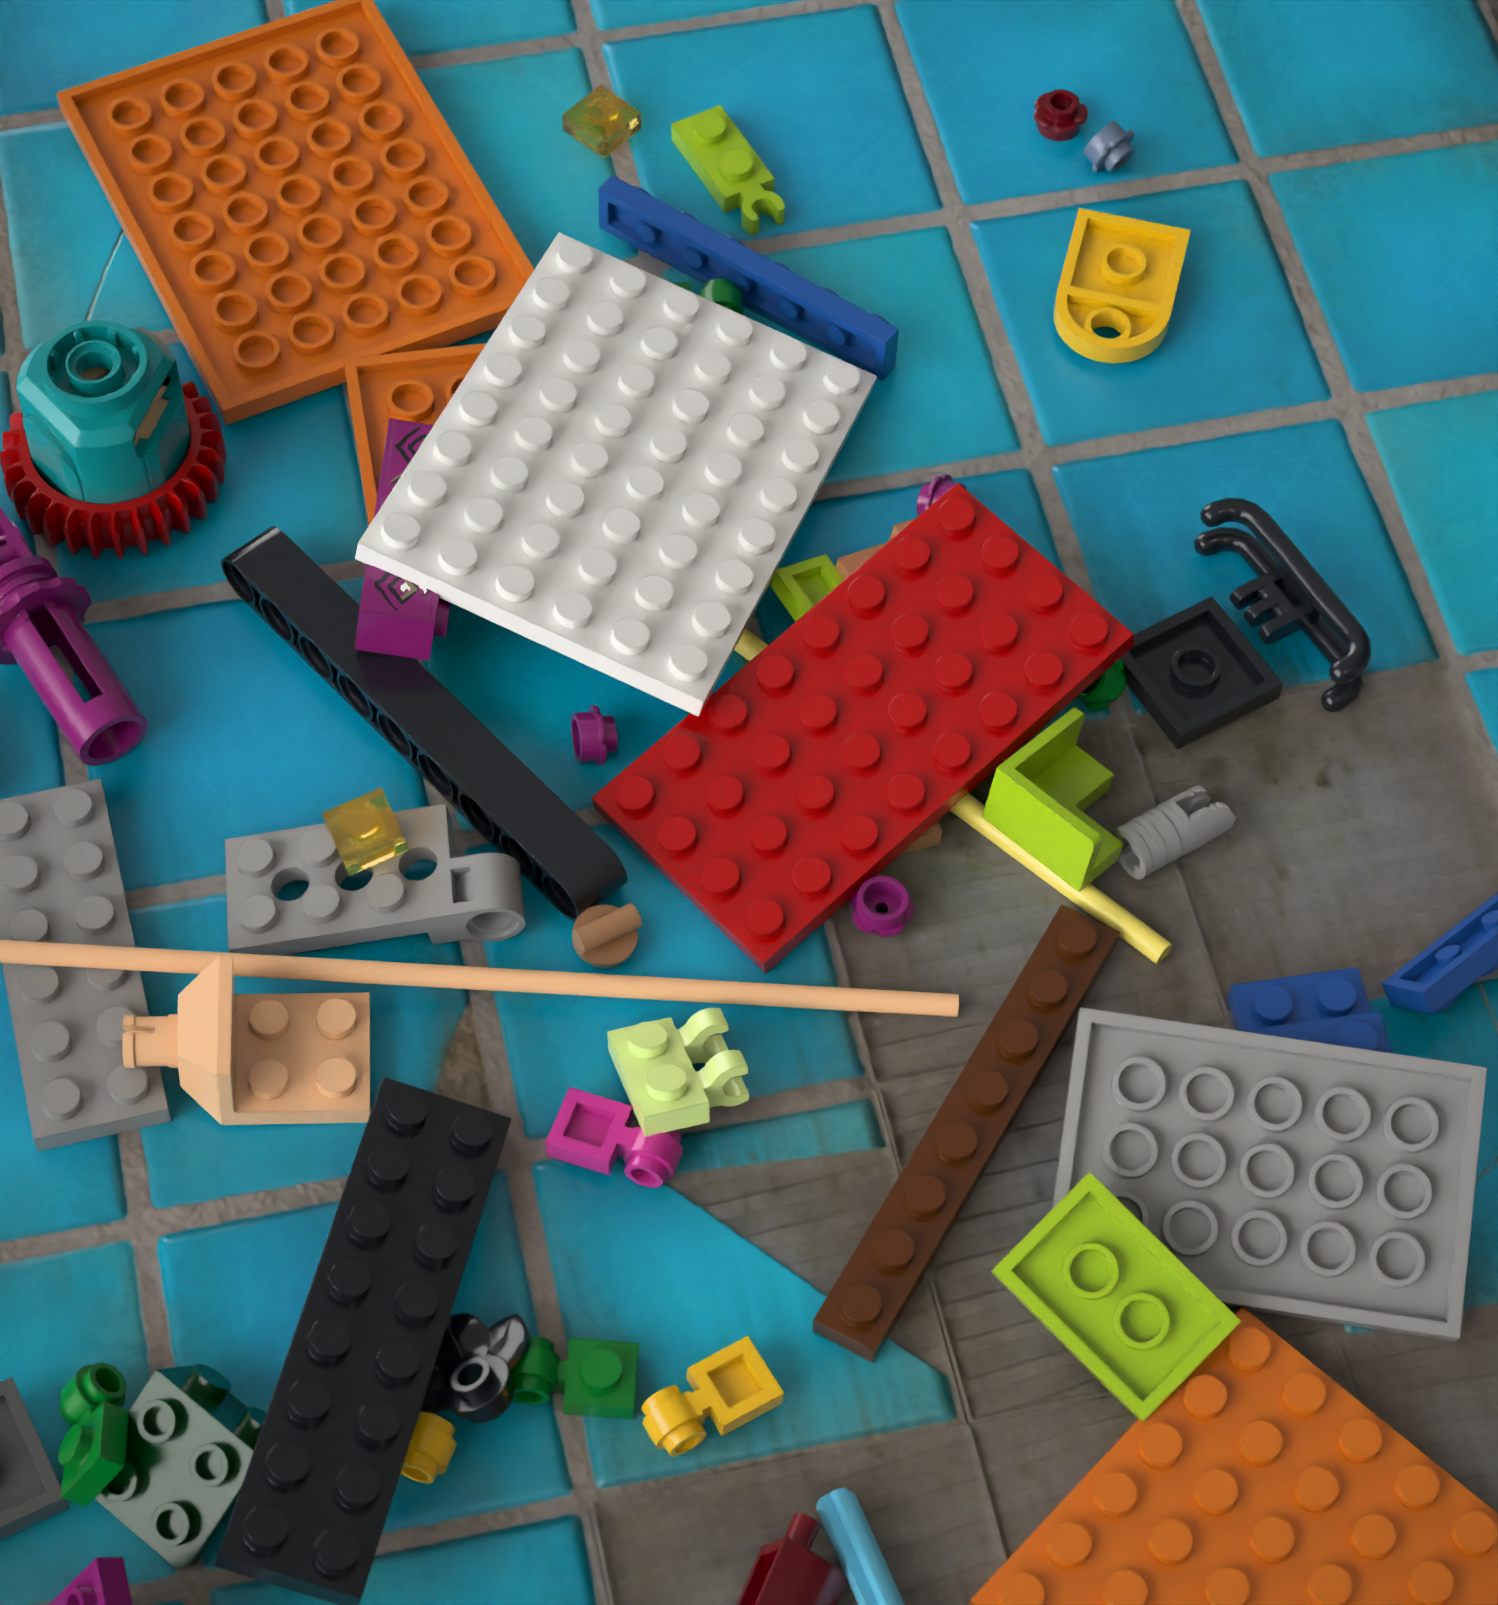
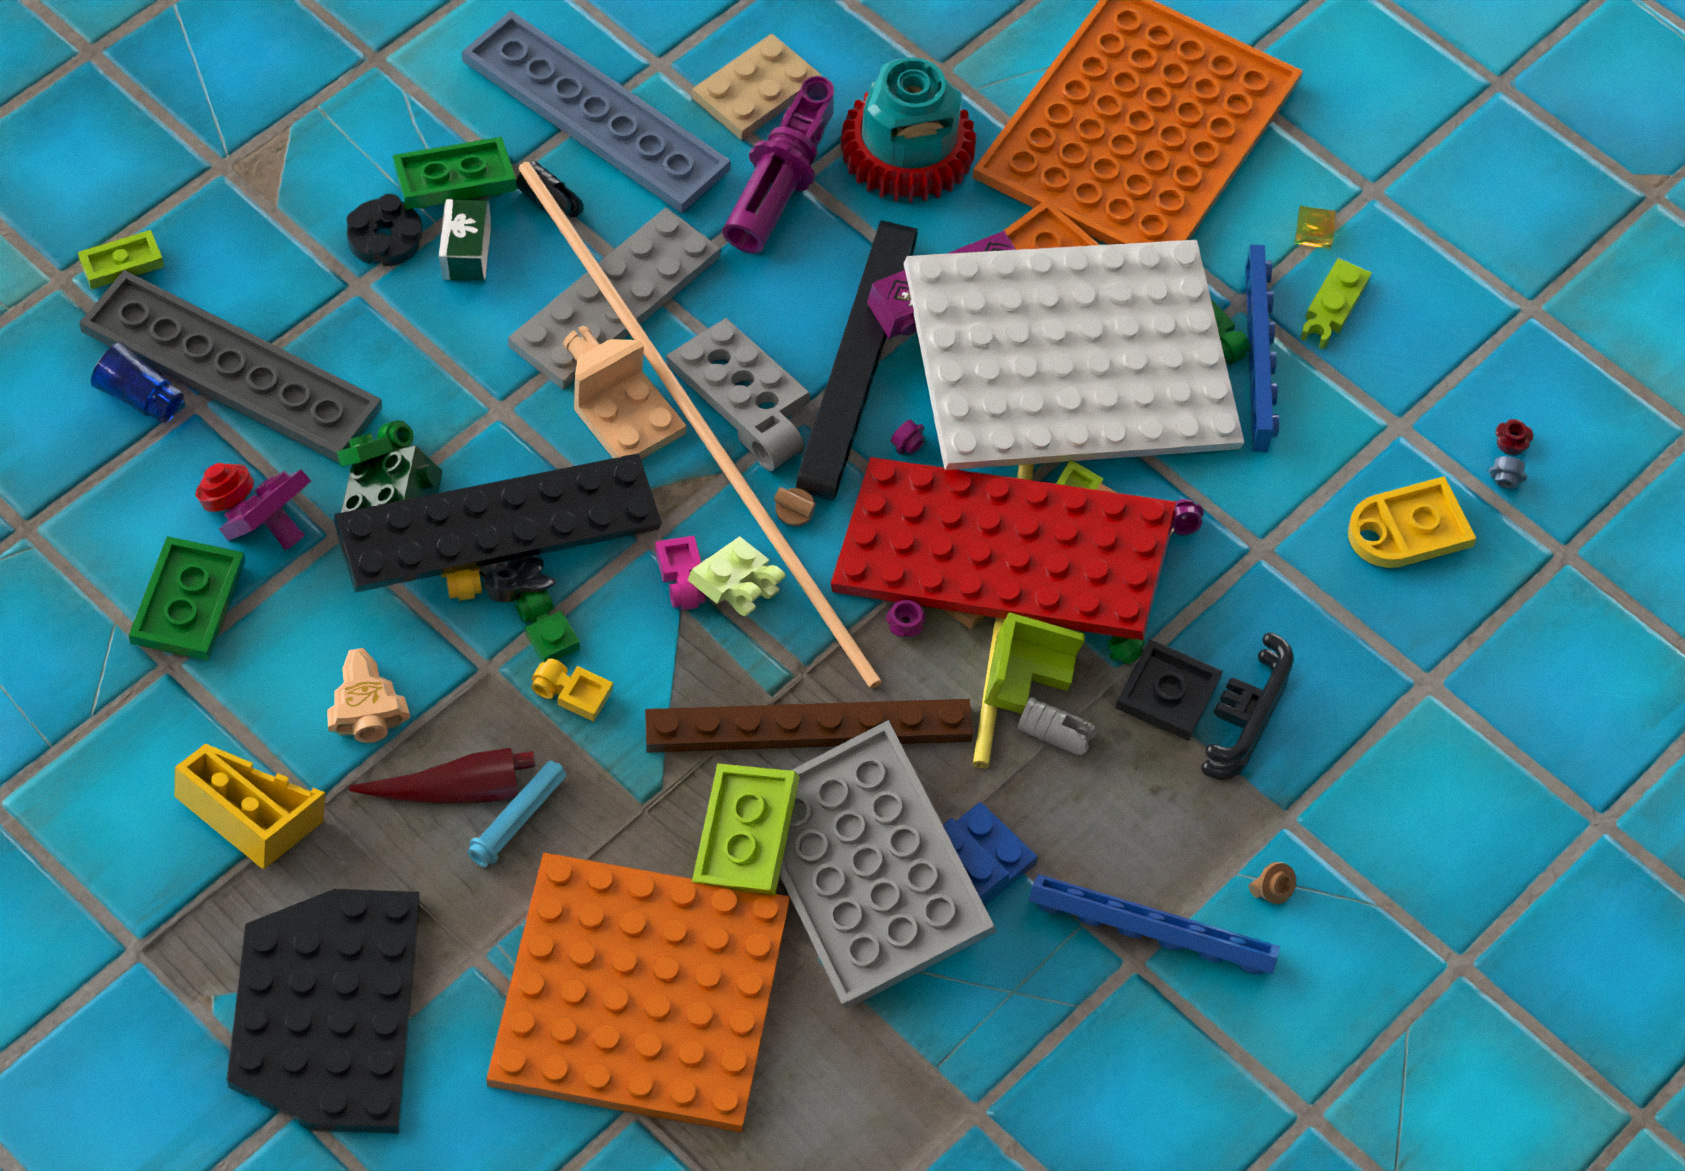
camera: 55 degrees right, 0 degrees up
(365, 831) = (763, 365): clear yellow plate -> none

